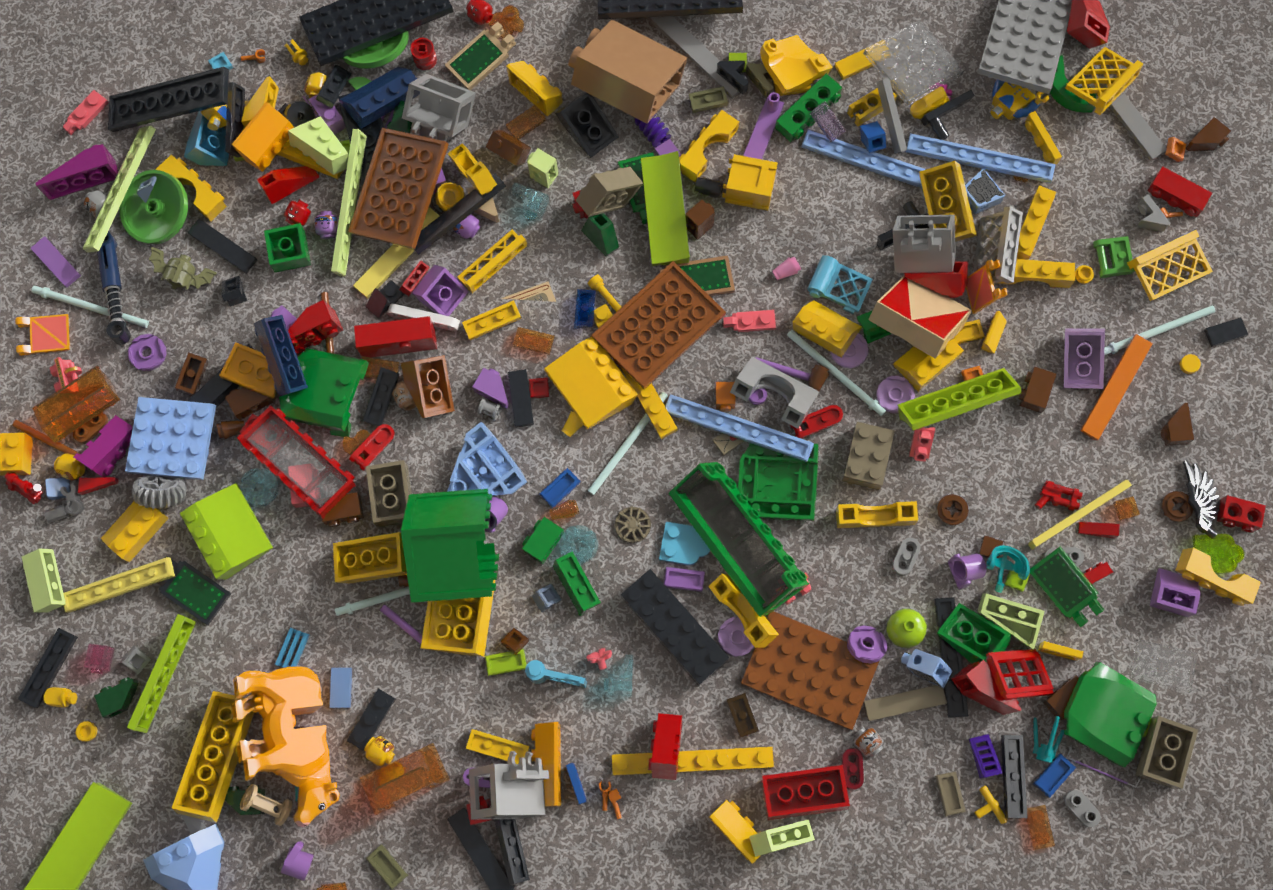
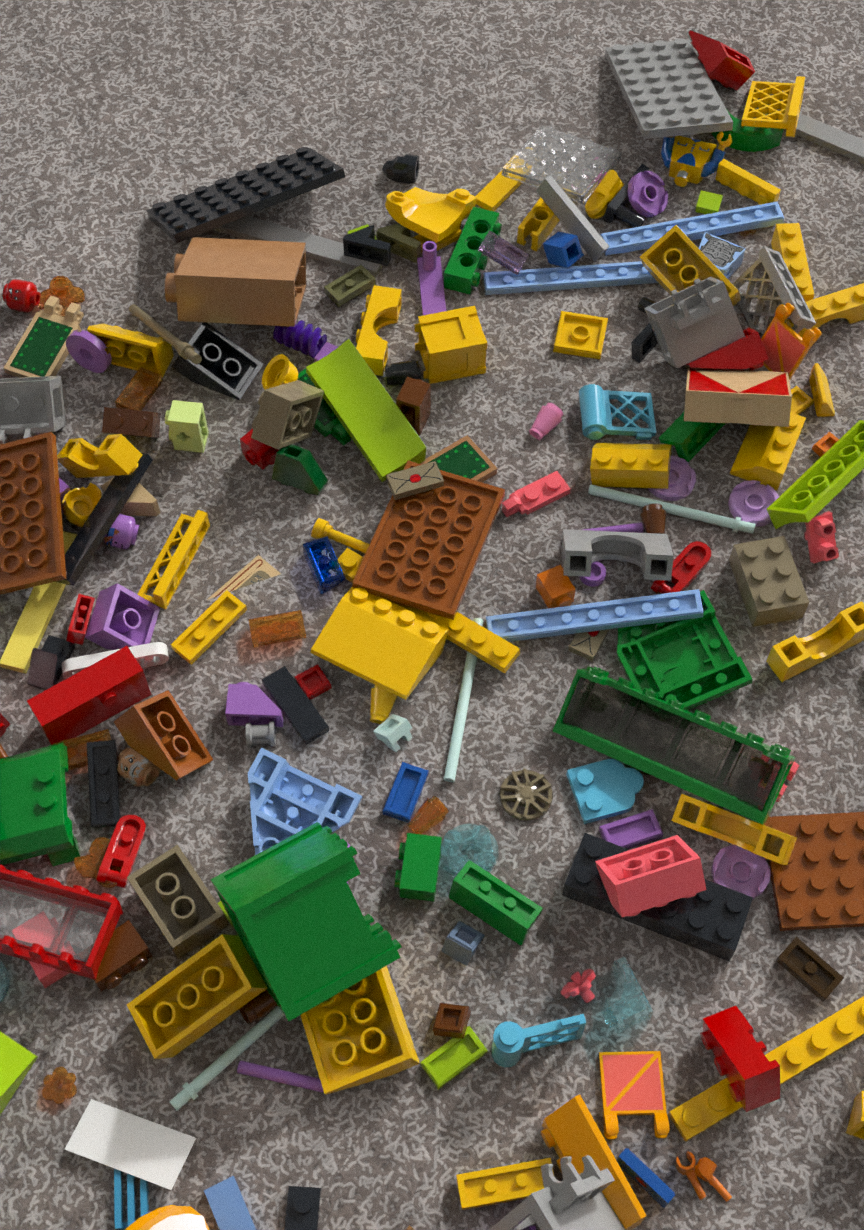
camera: 30 degrees left, 15 degrees down
(276, 565) = (59, 1076): none -> clear orange plant
(303, 622) = (130, 1144): none -> white sticker
(503, 78) = (88, 351): none -> medium lavender tile
(533, 201) = (190, 469): clear light blue arch -> none
(563, 110) = (184, 349): none -> dark tan bar
(570, 445) = (392, 730): none -> light aqua tile
(598, 729) = (632, 1086): none -> flag
(620, 156) = (279, 372): none -> yellow piece
(668, 279) = (415, 480): none -> dark tan tile
(671, 615) = (651, 876): none -> coral slope
(796, 15) = (402, 168): none -> black rock
(850, 210) = (580, 335): none -> yellow tile
(971, 116) = (638, 197): none -> medium lavender tile
(1006, 141) = (708, 202): none -> lime tile

